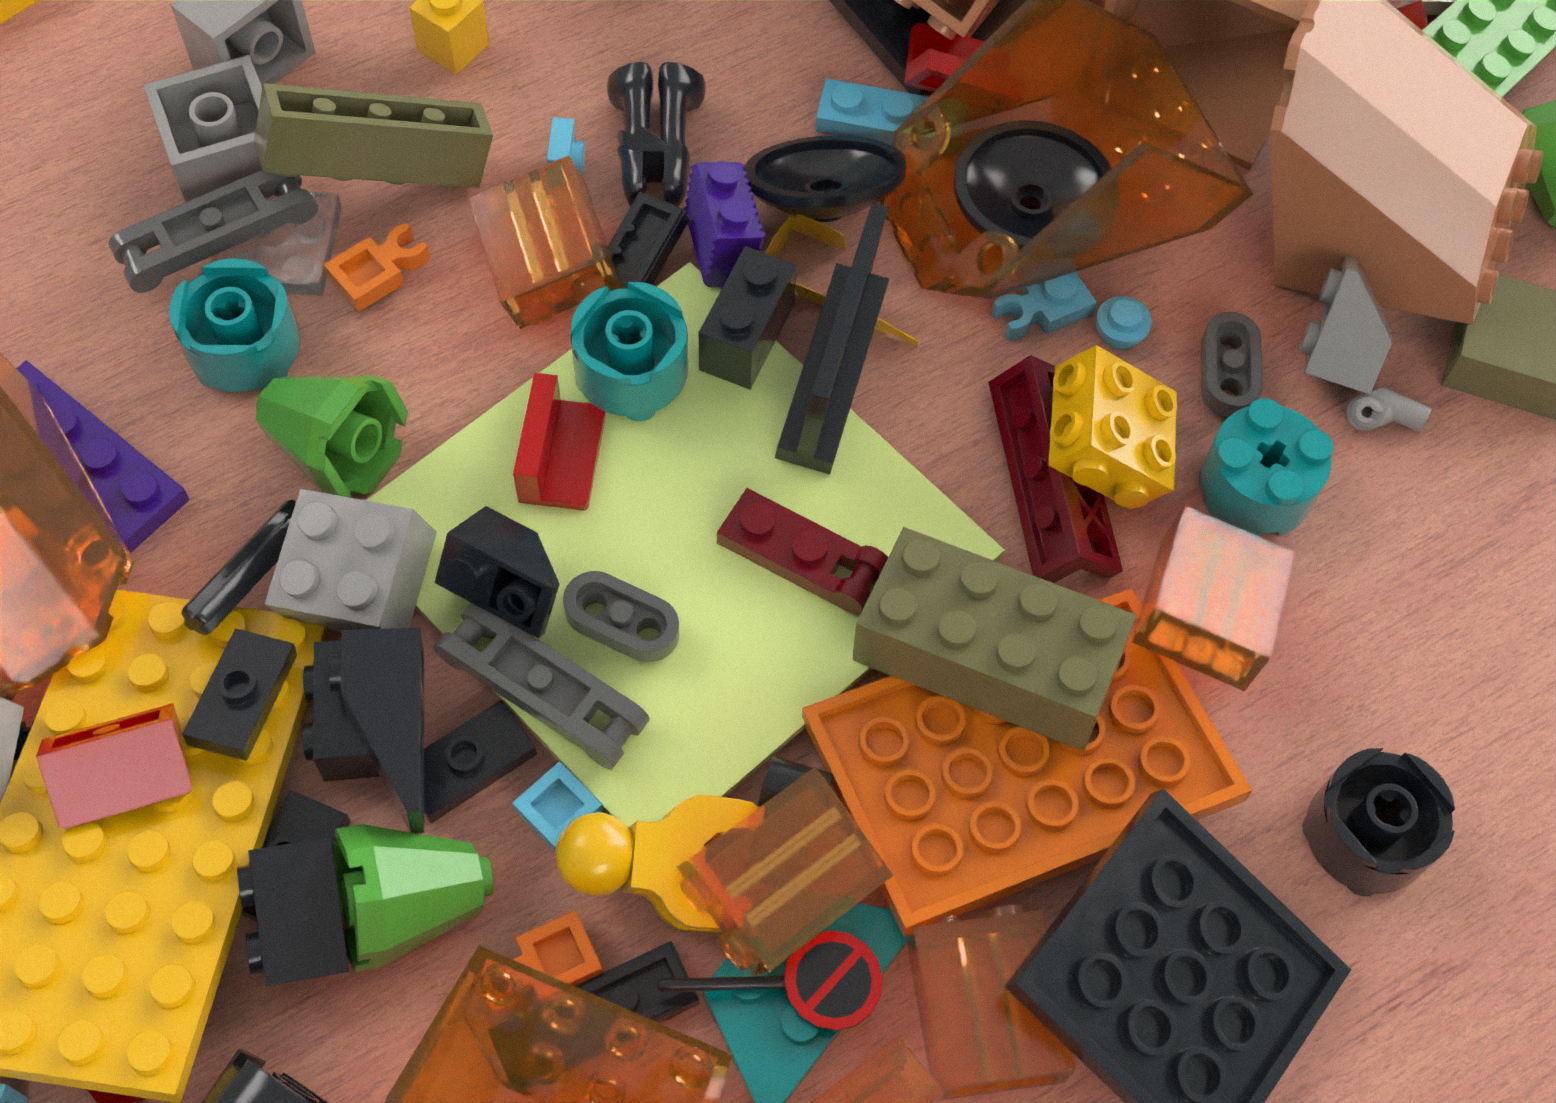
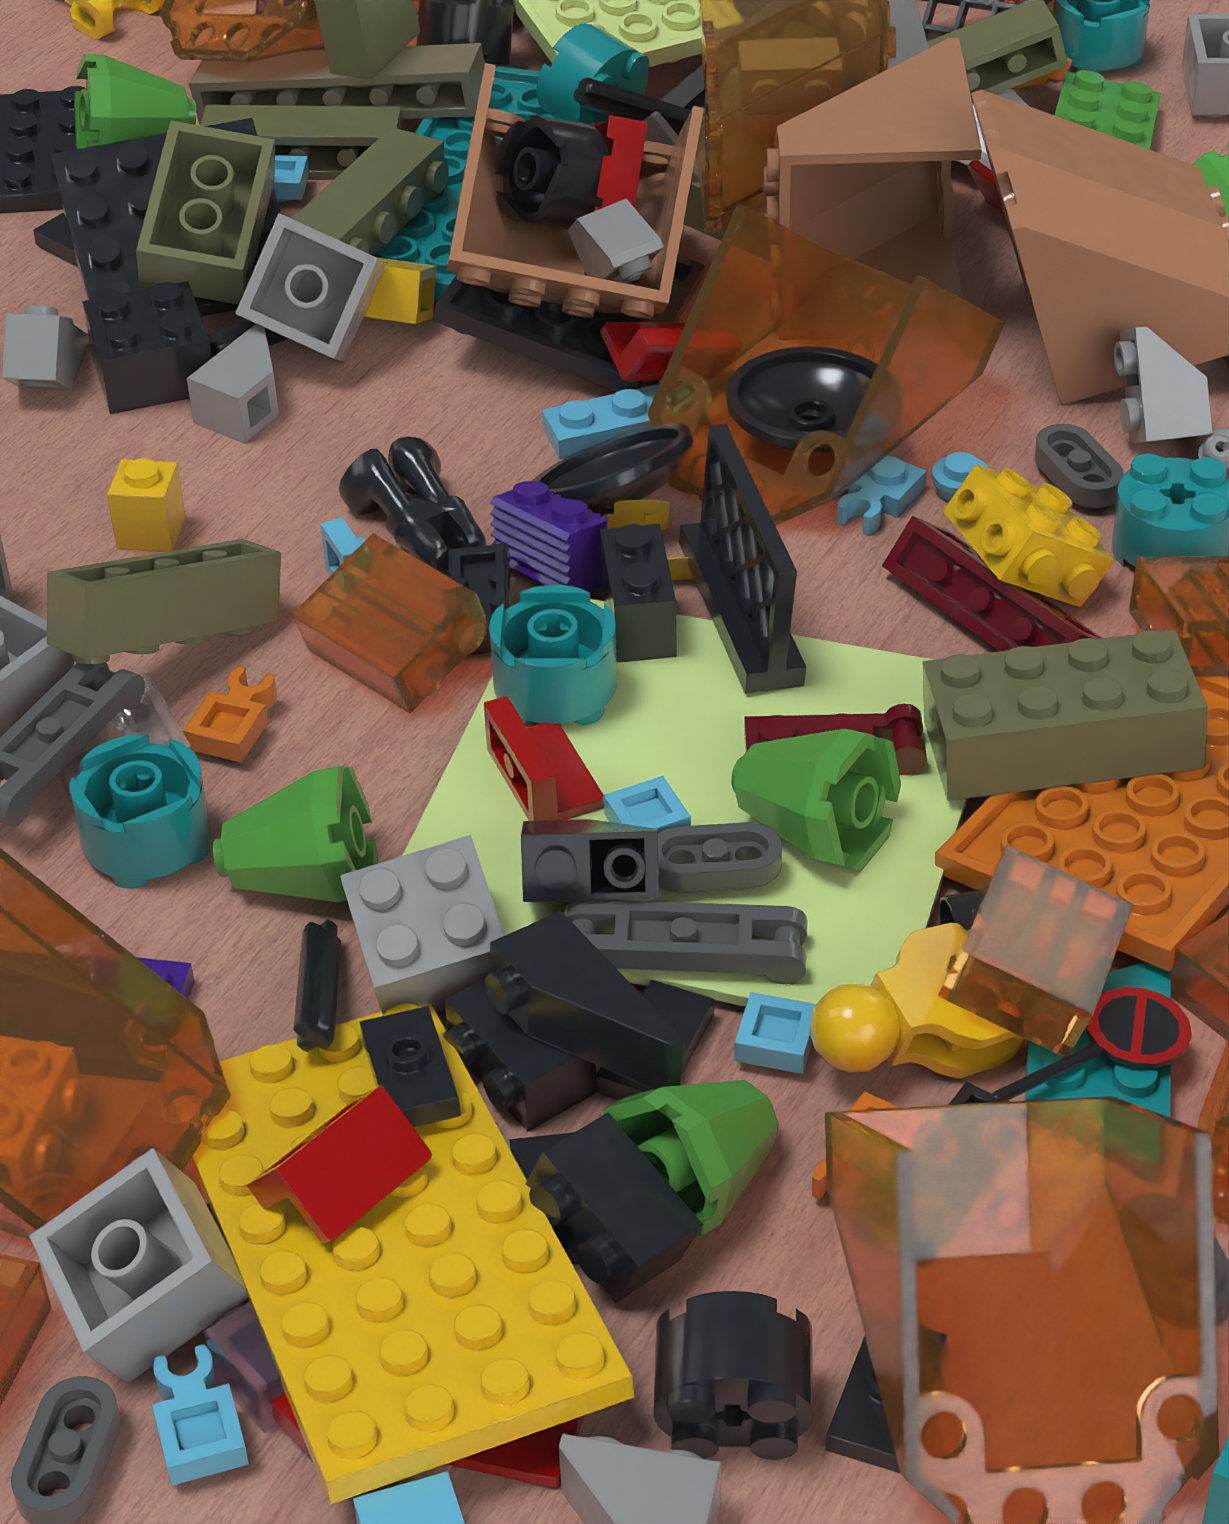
camera: 25 degrees left, 20 degrees down
(599, 543) = (647, 805): none -> medium azure plate
(739, 610) = (822, 792): none -> bright green cone

